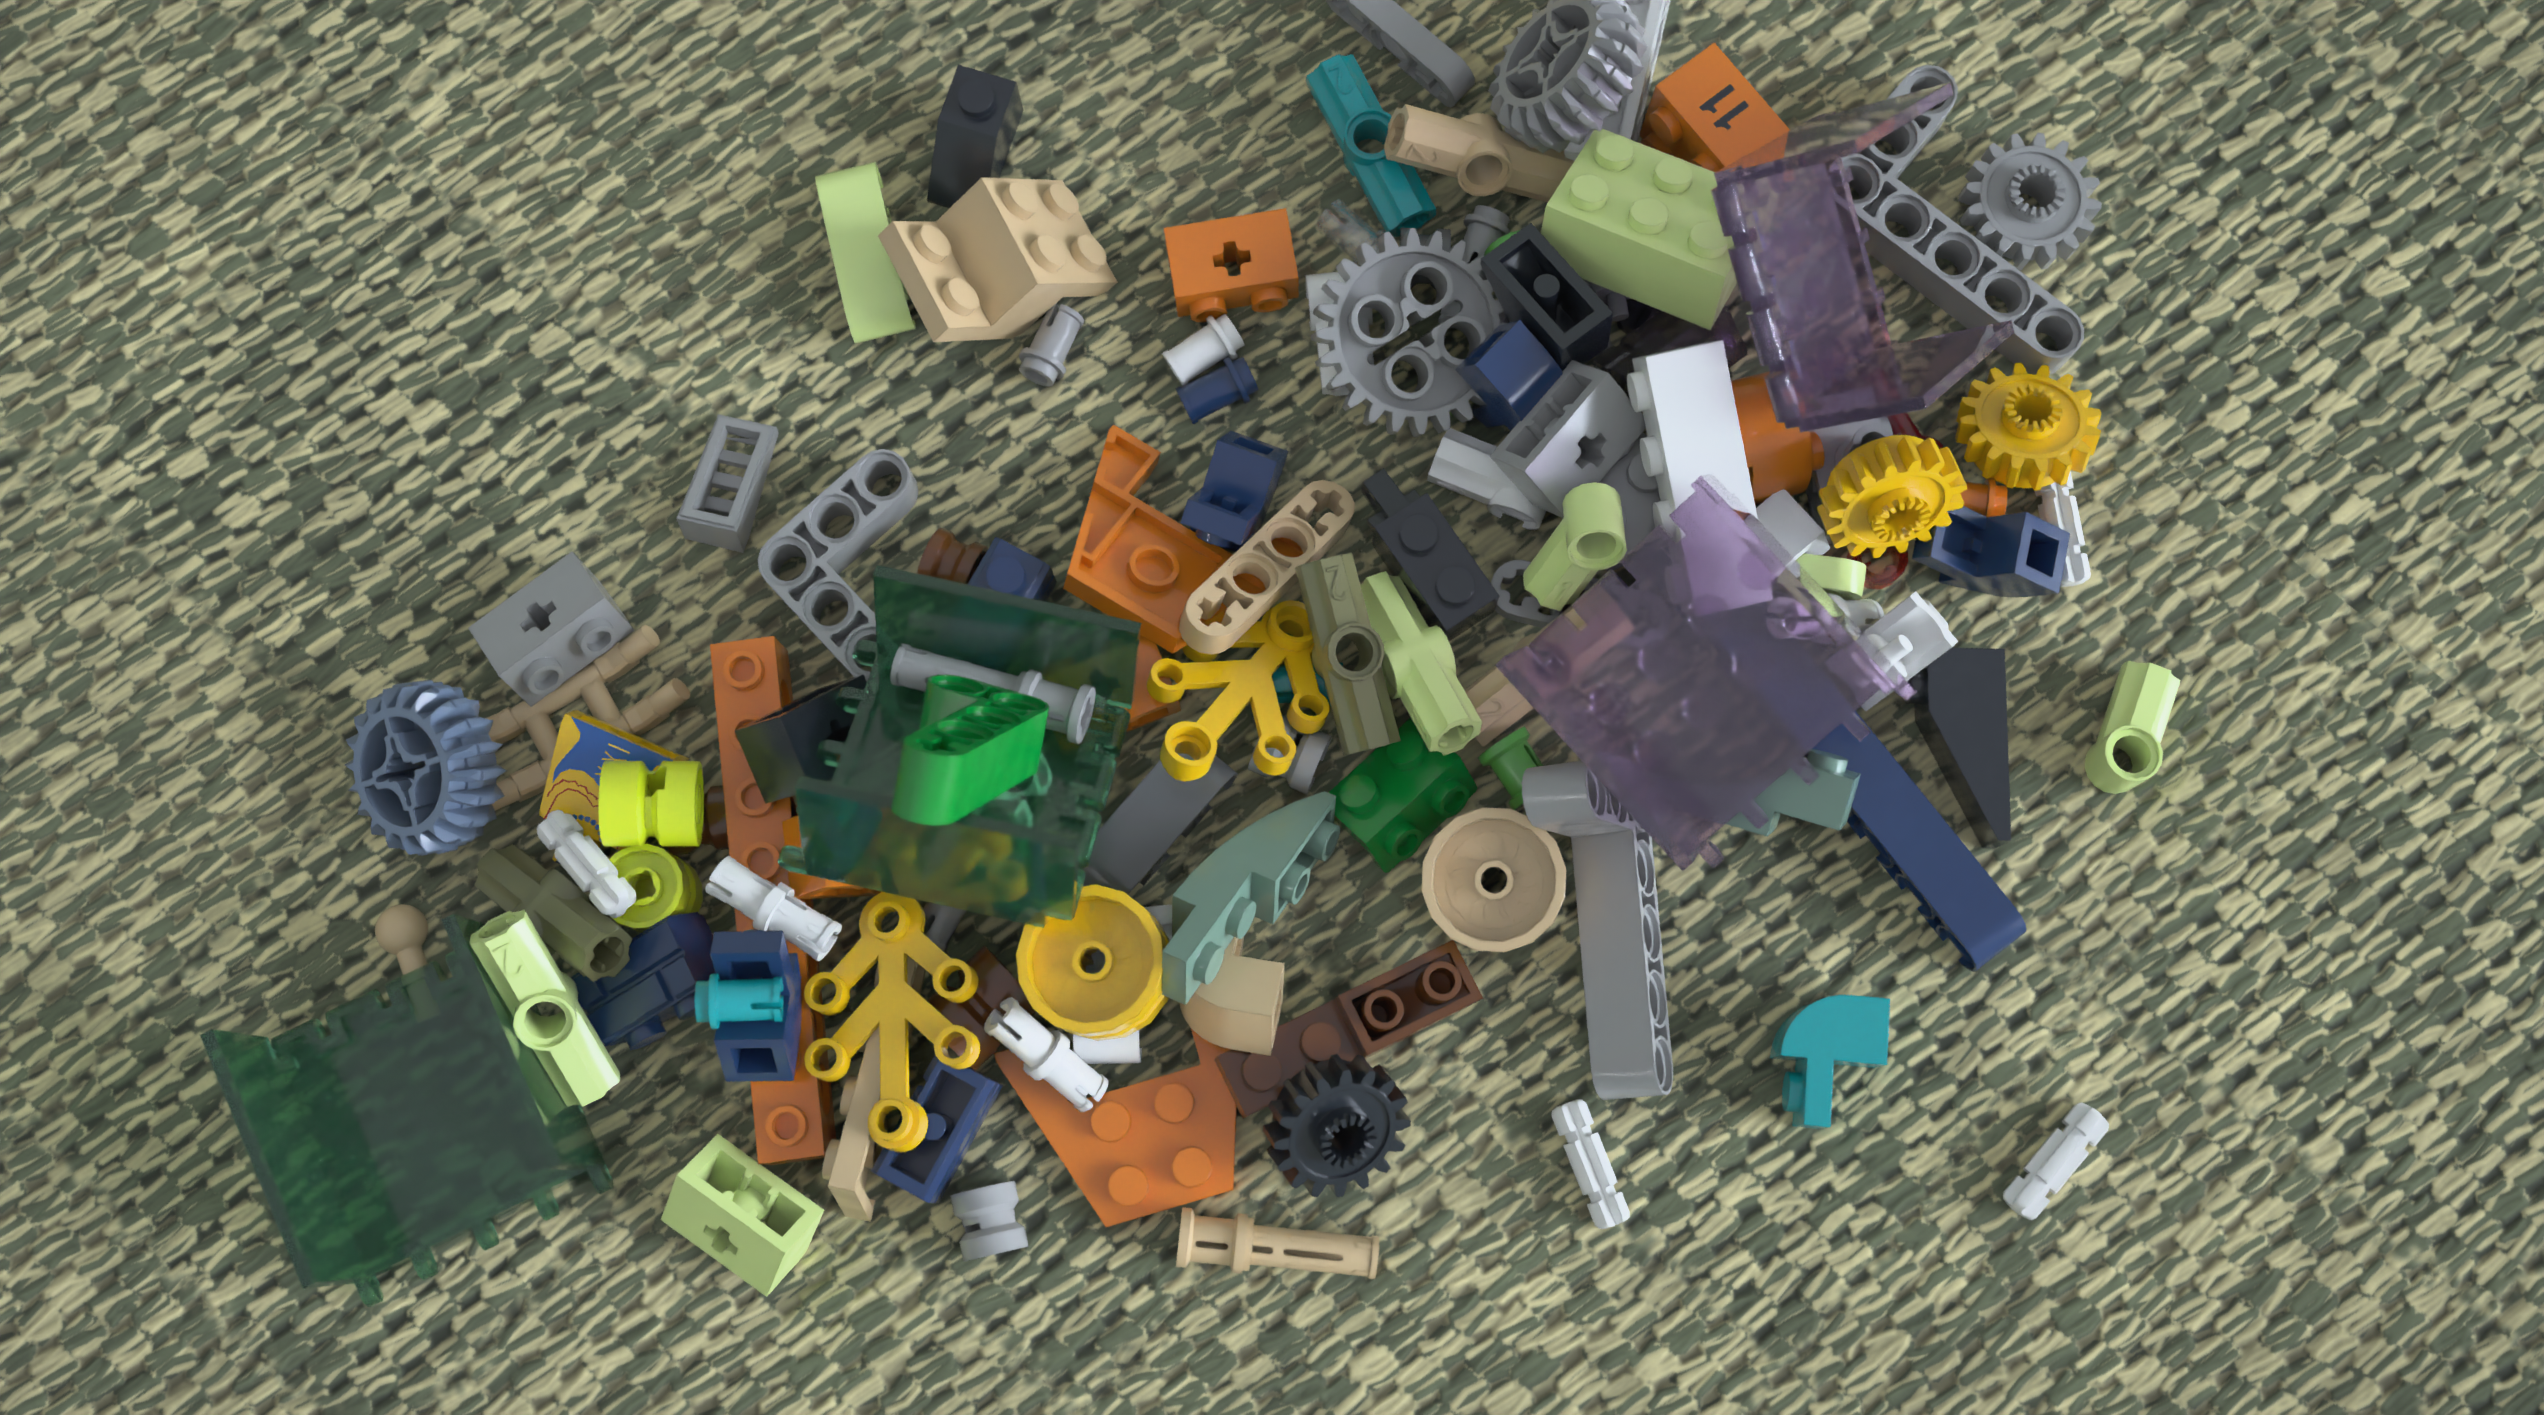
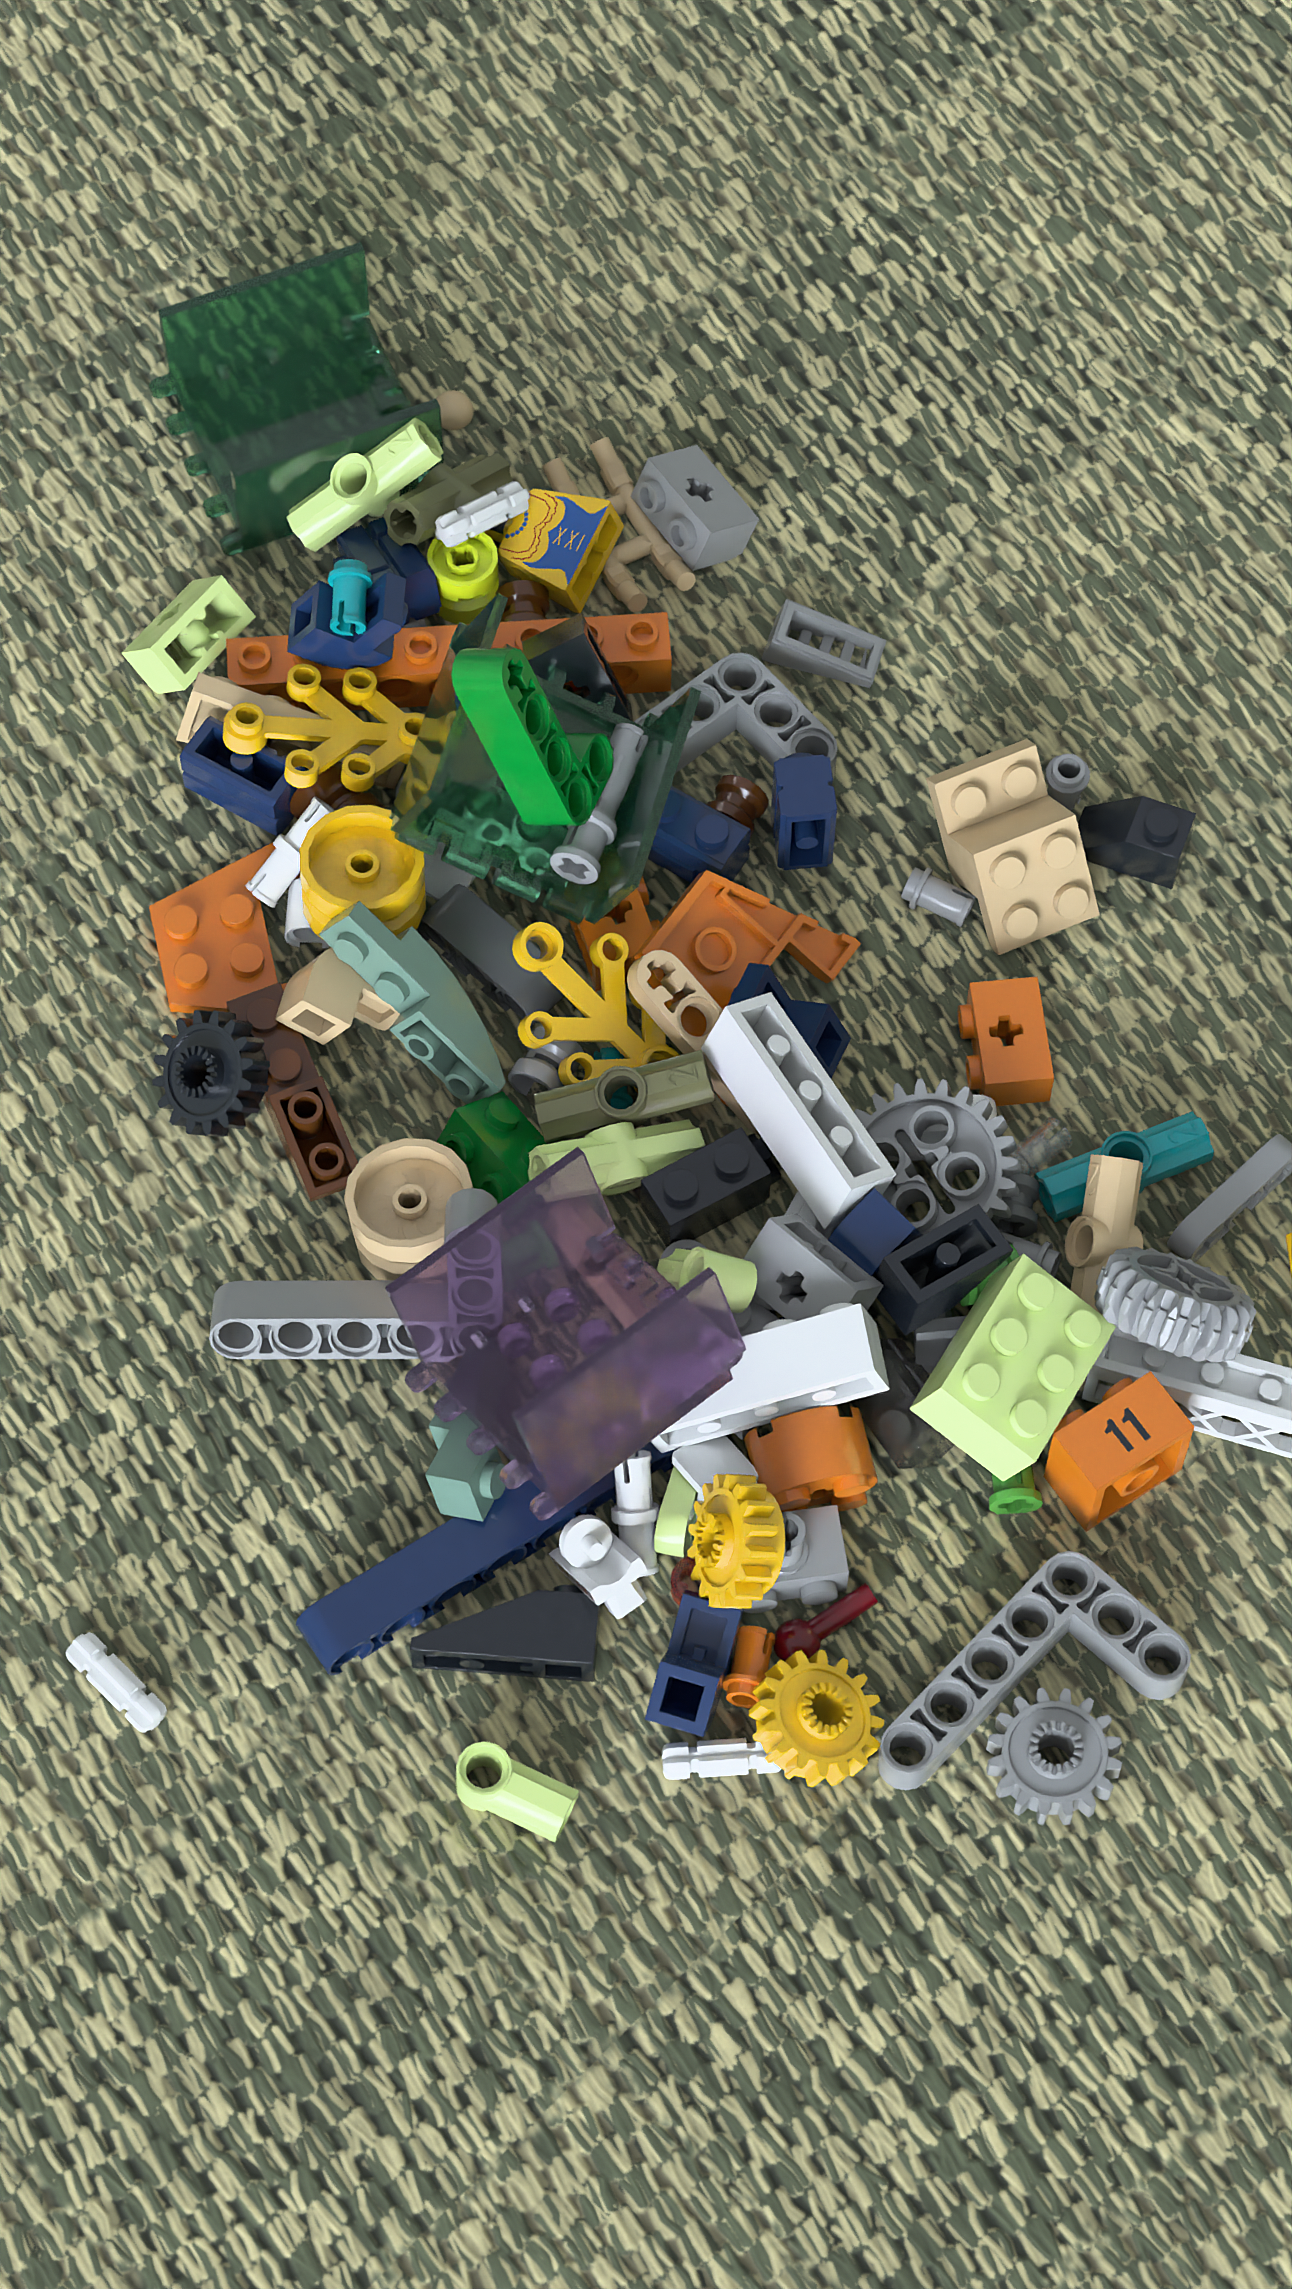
camera: 90 degrees right, 15 degrees down
(425, 767) = (578, 413): sand blue gear -> none
(651, 803) = (527, 558): neon yellow wheel -> none
(773, 908) = (430, 643): white pin -> none
(866, 277) = (1055, 733): yellowish green beam -> none
(907, 201) = (1066, 779): none -> light grey pin
(965, 480) = (803, 811): none -> dark blue brick
(989, 1220) = (166, 817): light grey wheel -> none
(1204, 349) = (936, 1030): white pin -> none
(1217, 389) = (890, 1029): dark blue pin -> none
(1243, 1244) = (122, 1010): tan pin -> none
(1373, 455) = (796, 1108): none -> white brick
(1590, 1164) = (159, 1290): white axle -> none
(1812, 280) = (942, 1485): clear purple windscreen -> none
(1826, 1033) = (248, 1484): teal brick -> none

